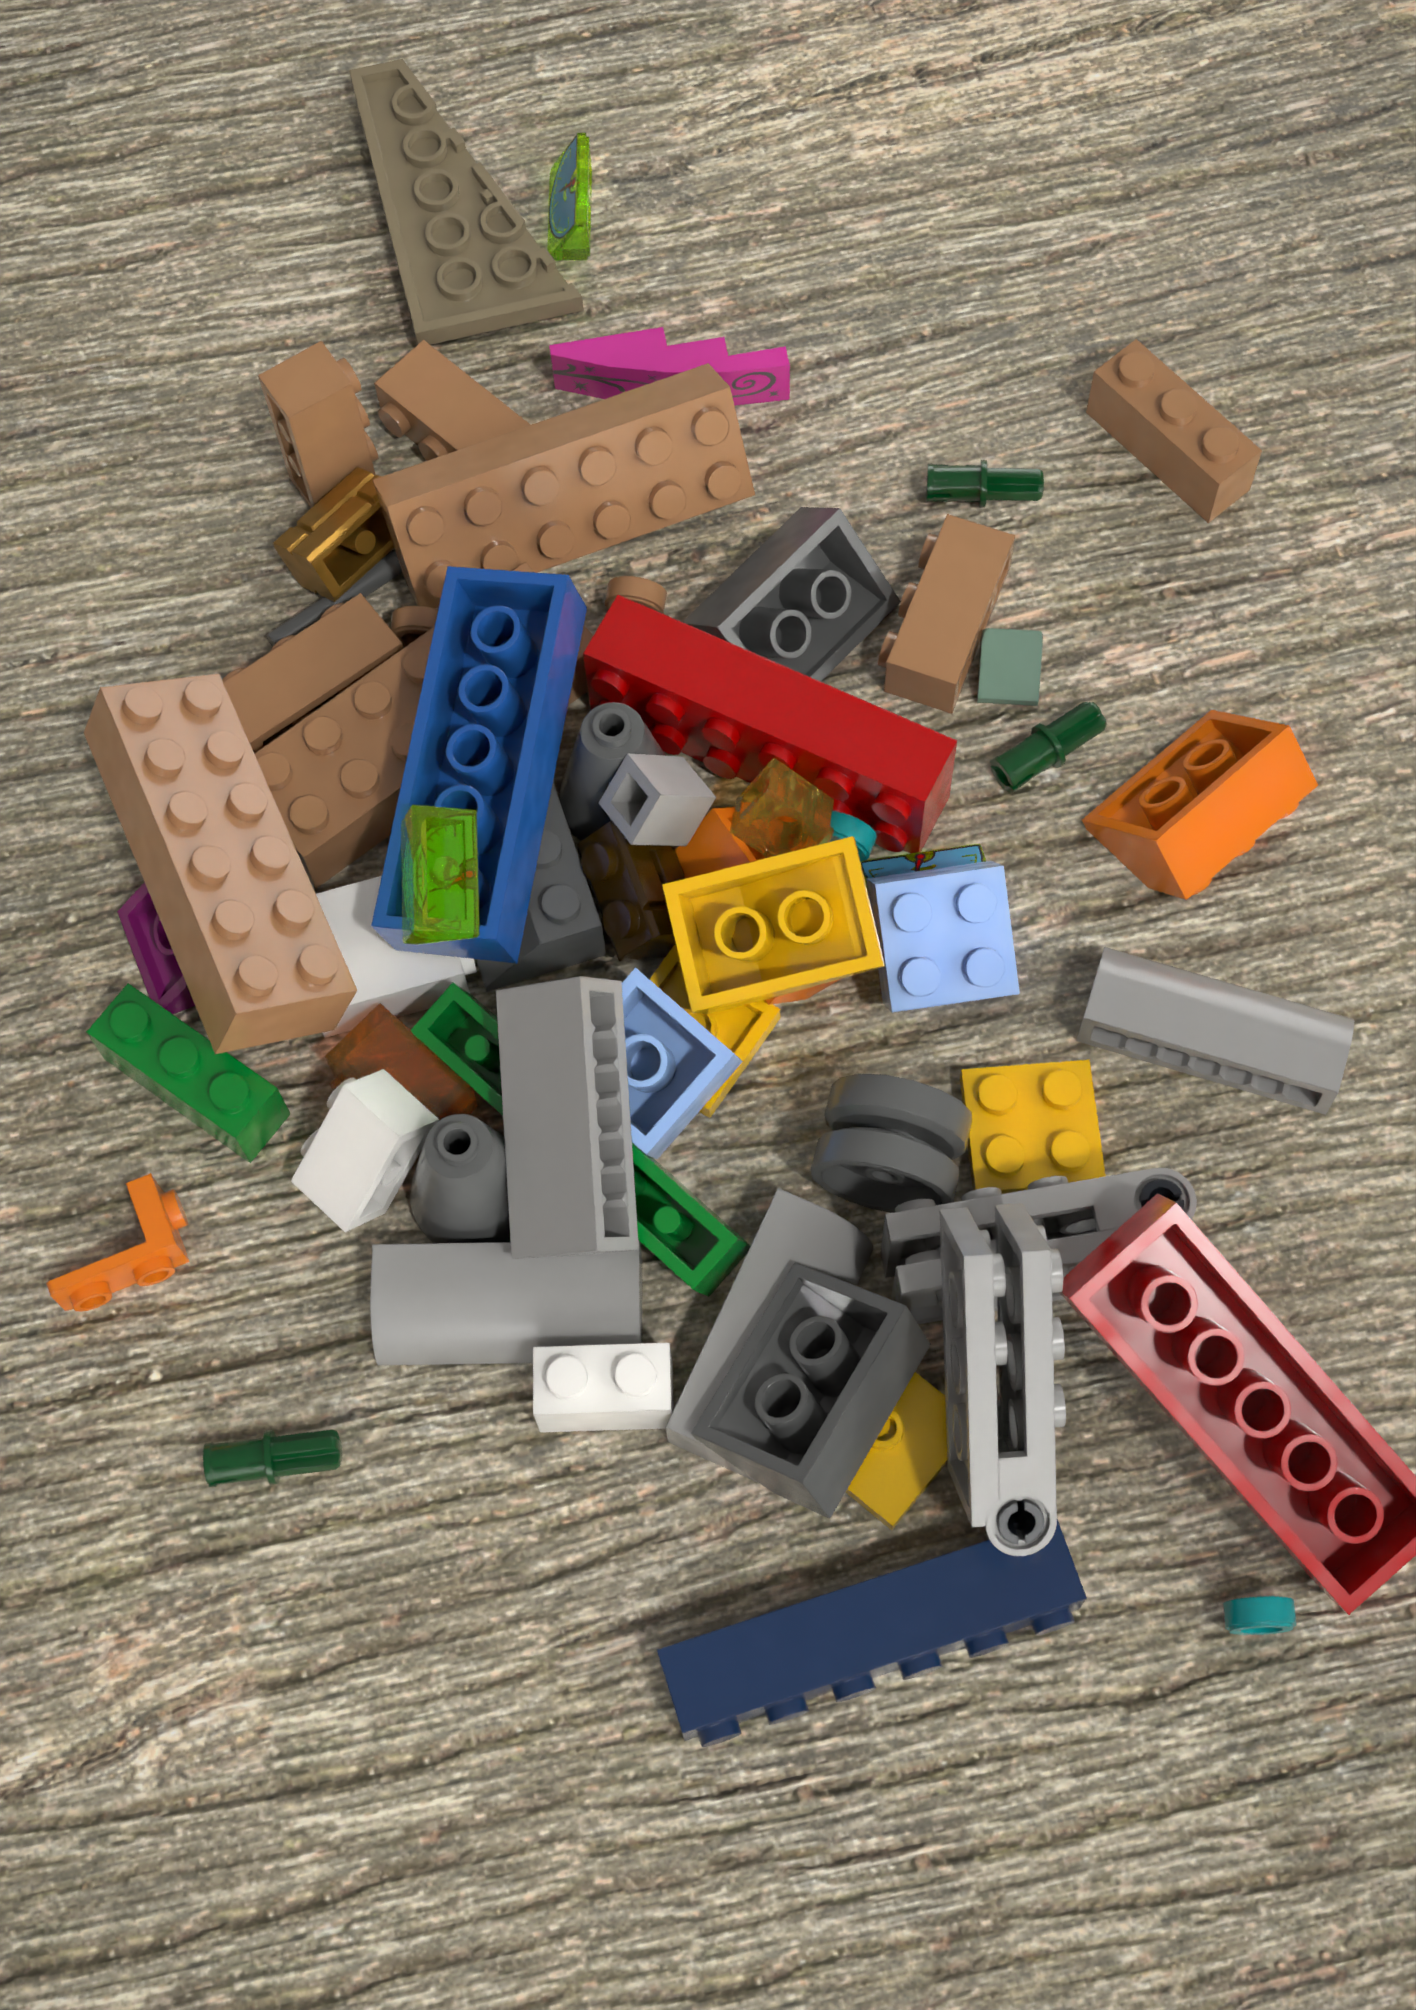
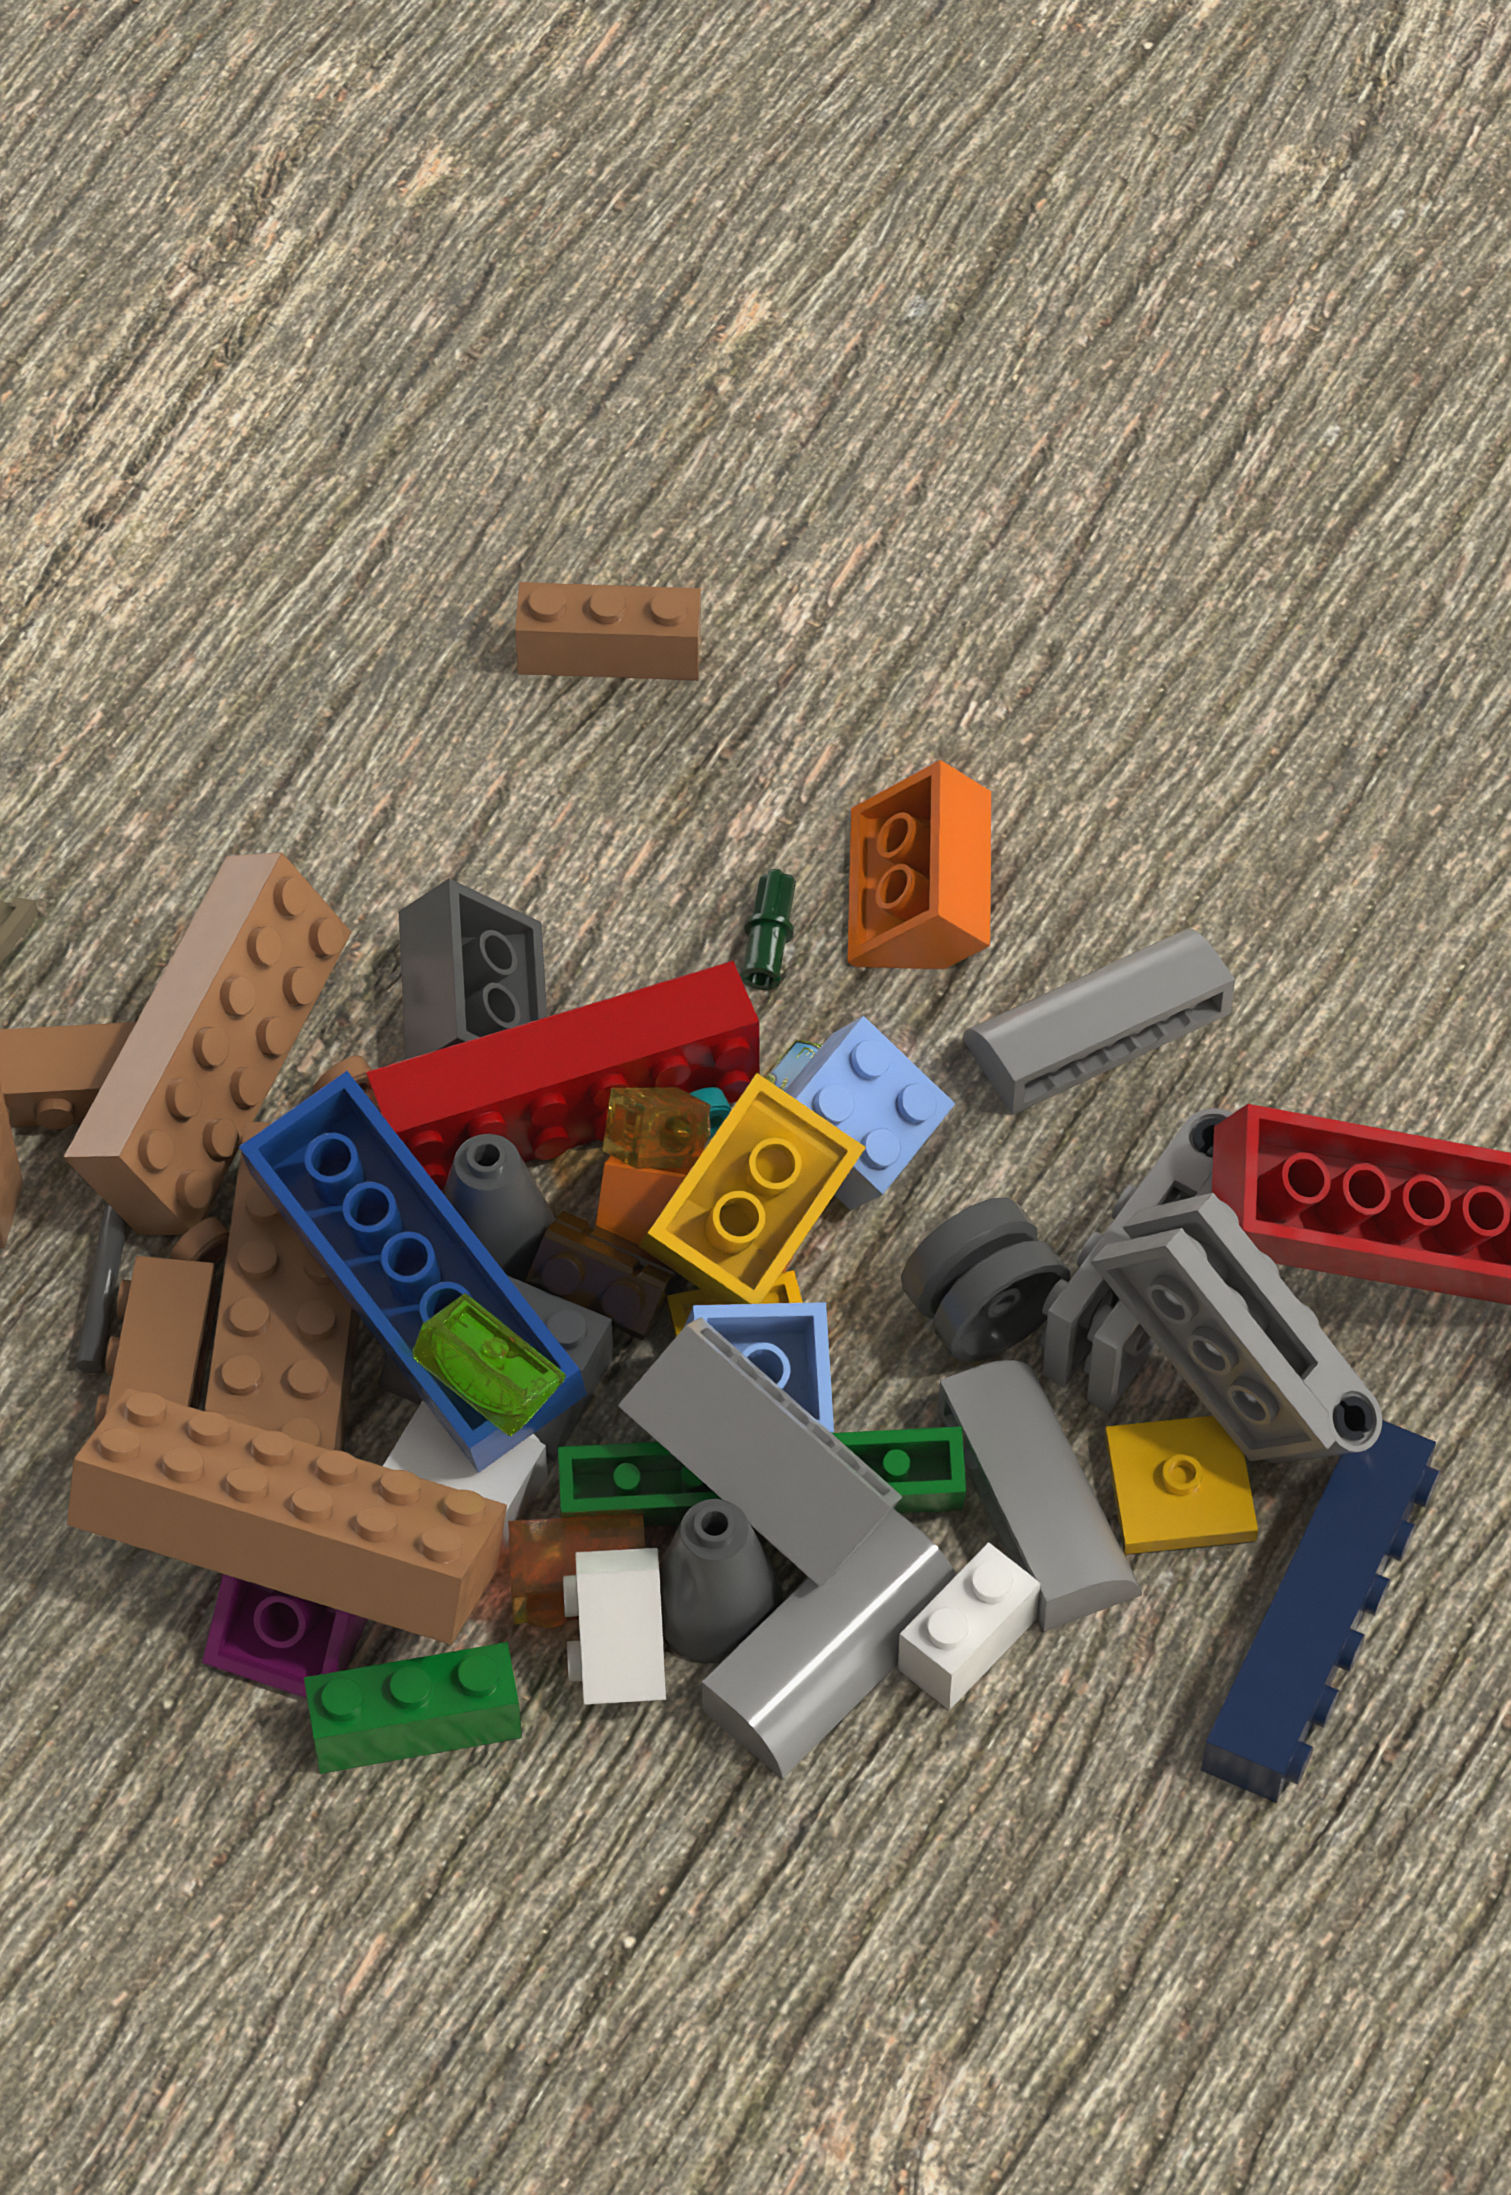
camera: 50 degrees left, 10 degrees down
(144, 1264) = (520, 1830): orange bracket -> none
(271, 1457) = (786, 1901): dark green axle -> none
(337, 538) = (58, 1234): pearl gold brick -> none
(637, 358) = (157, 910): dark pink slope -> none
(656, 800) = (563, 1189): light grey brick -> none
(813, 1387) = (1115, 1478): dark grey slope -> none
(946, 612) = (592, 897): medium nougat brick -> none
(981, 483) = (506, 786): dark green axle -> none
(1010, 666) = (677, 898): sand green slope -> none
(1032, 1124) = (1059, 1186): yellow plate -> none

